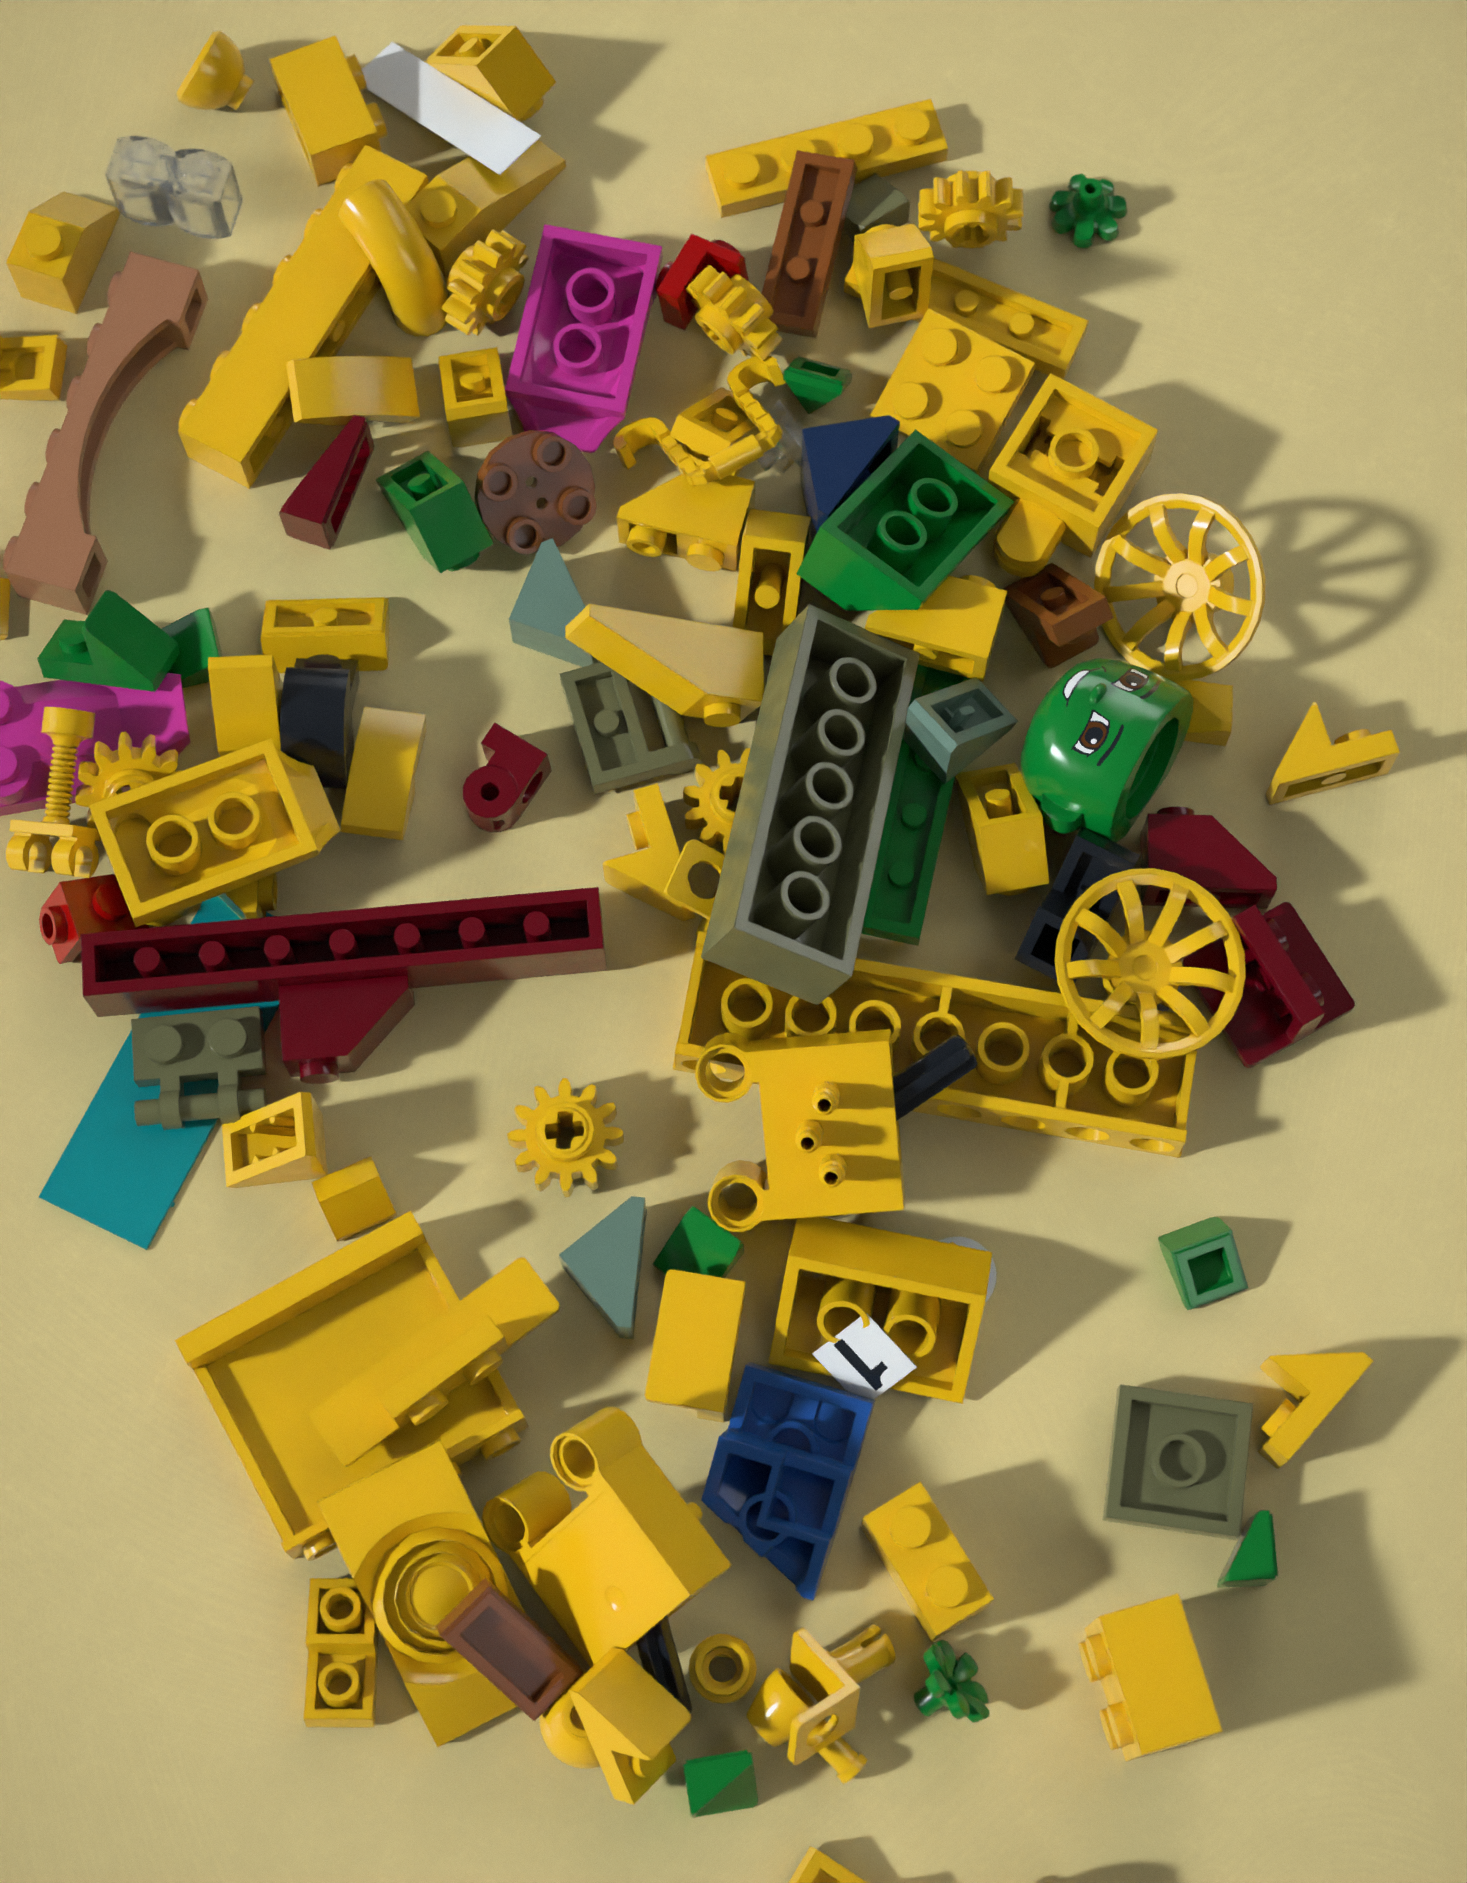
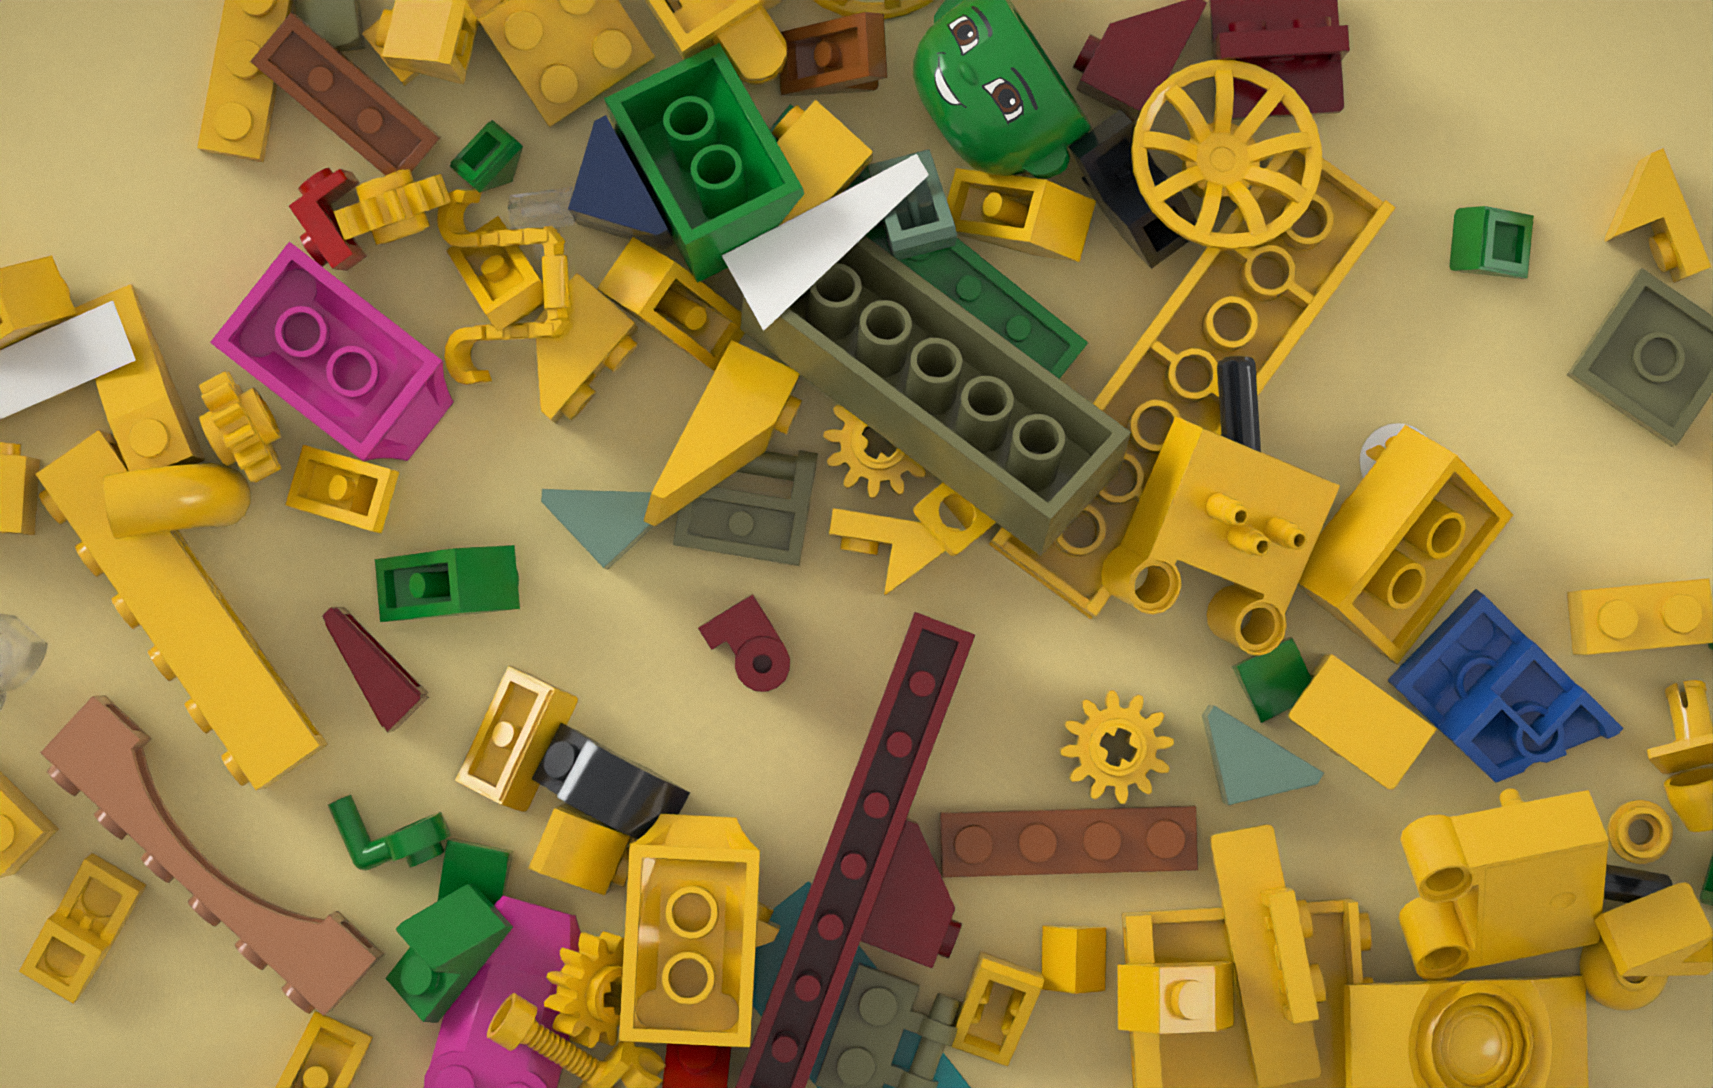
camera: 65 degrees left, 15 degrees up
(195, 584) = (415, 841): none -> green plate
(340, 386) = (290, 604): yellow slope -> none
(358, 1291) = (1176, 997): none -> yellow slope
(383, 773) = (686, 750): yellow slope -> none
(460, 1143) = (1069, 841): none -> dark orange plate
(509, 1649) = (1550, 1007): dark orange tile -> none
(560, 478) = (481, 511): dark orange plate -> none
(860, 631) = (796, 254): none -> white sticker
(864, 1359) = (1442, 581): white sticker -> none

